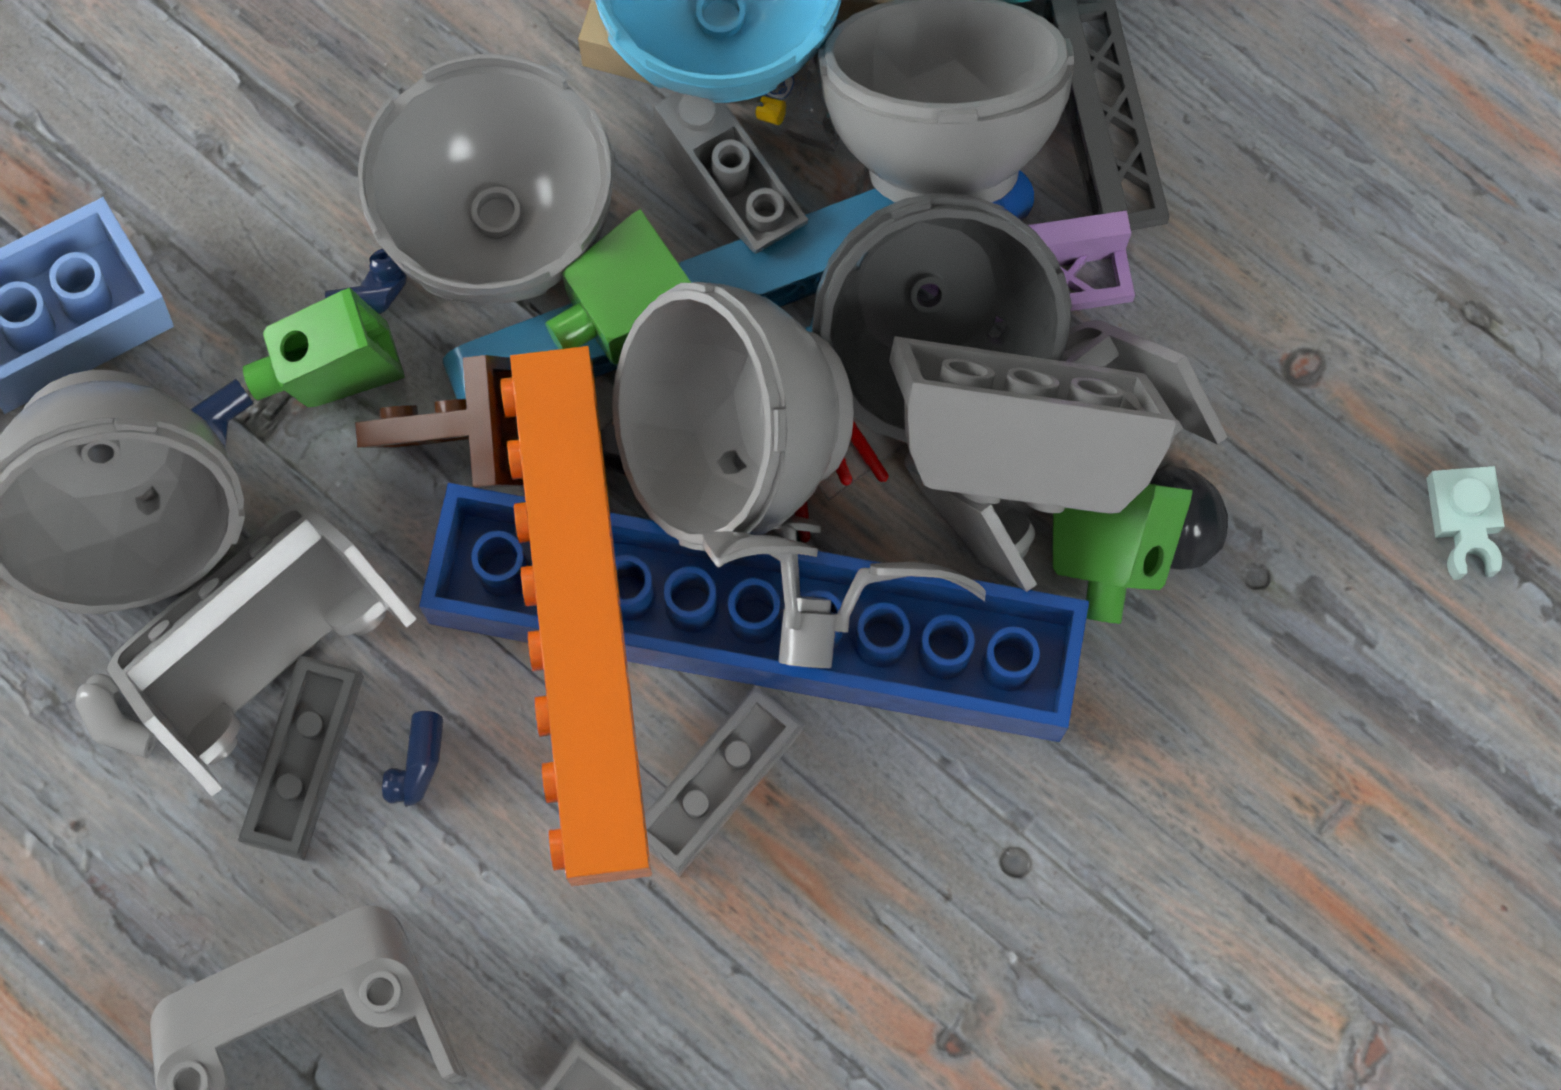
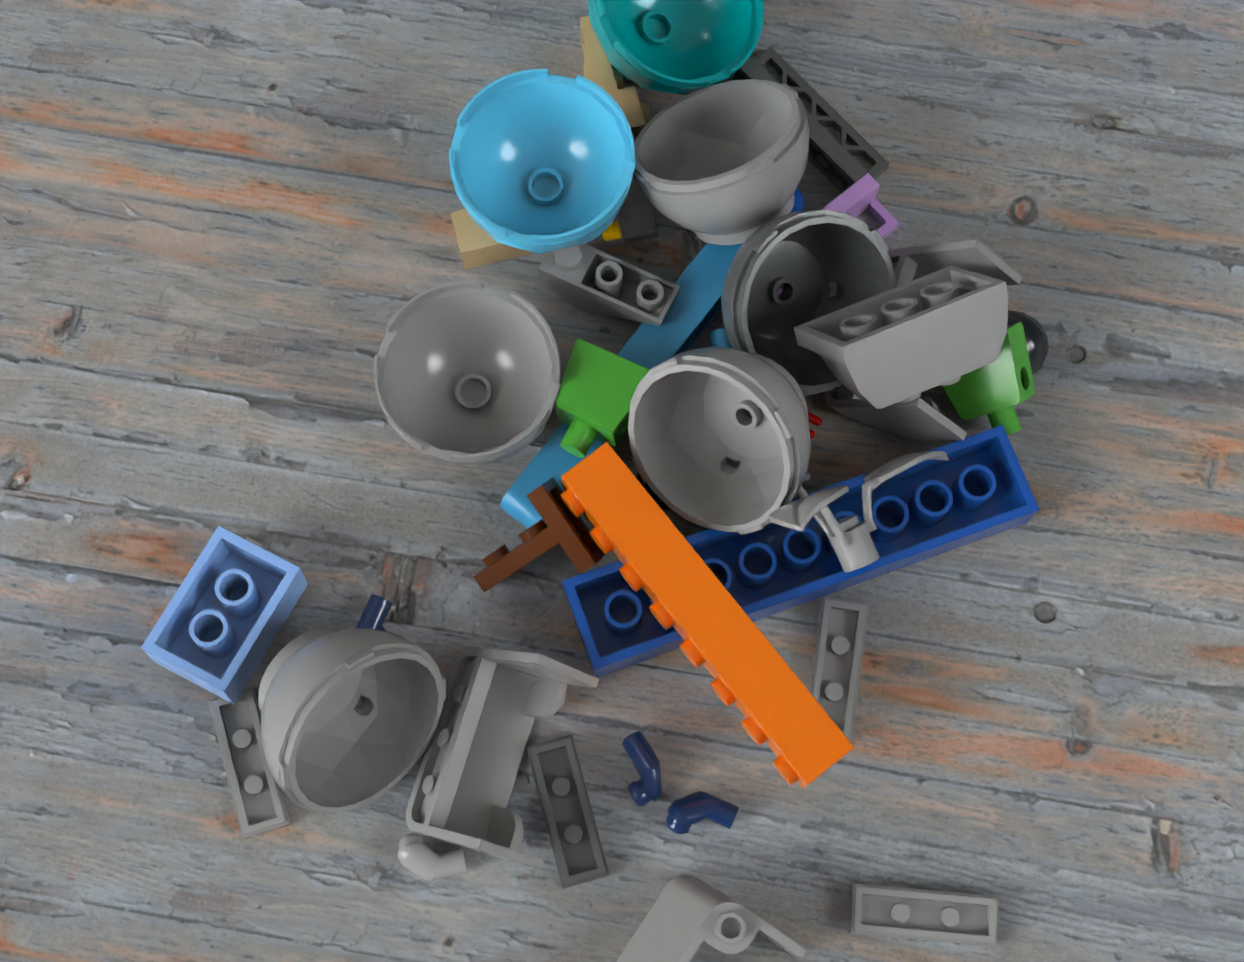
camera: 30 degrees left, 0 degrees up
(326, 353) = (437, 533): bright green torso -> none
(380, 284) = (426, 487): dark blue arm -> none
(453, 841) = (698, 807): none -> dark blue arm
(1468, 508) = (1175, 242): light aqua plate -> none

